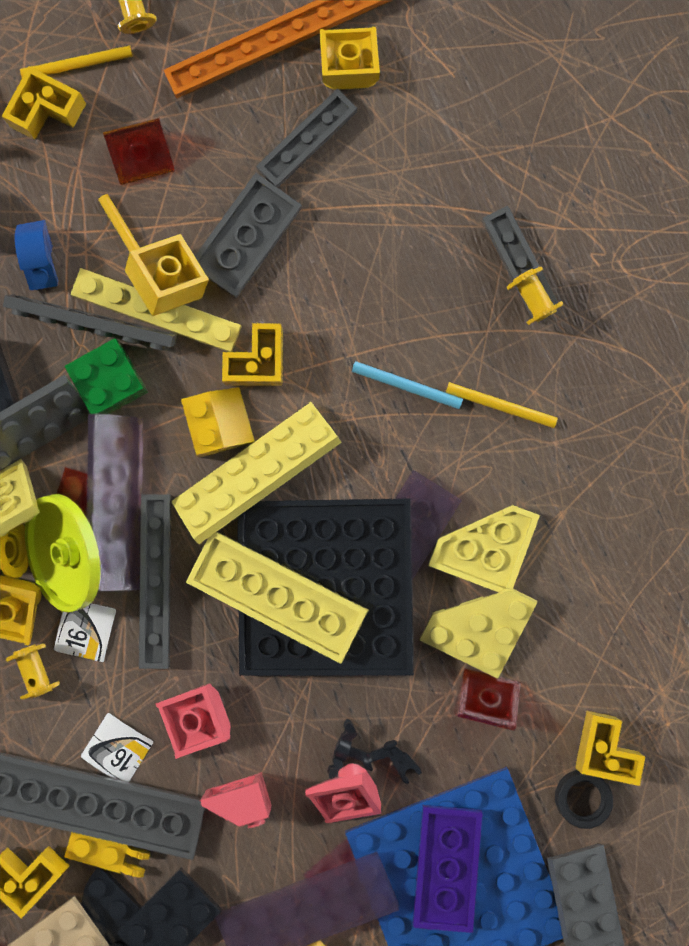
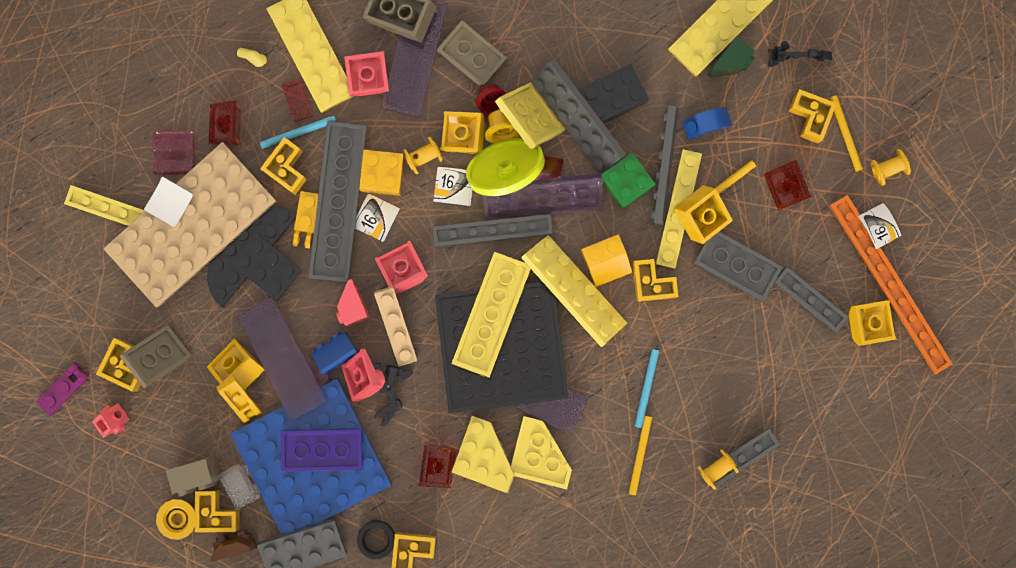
camera: 80 degrees right, 0 degrees up
(50, 734) = (382, 172): none -> yellow brick
(212, 29) = (880, 225): none -> sticker
(277, 738) = (395, 326): none -> tan plate
(308, 832) = (334, 353): none -> blue slope

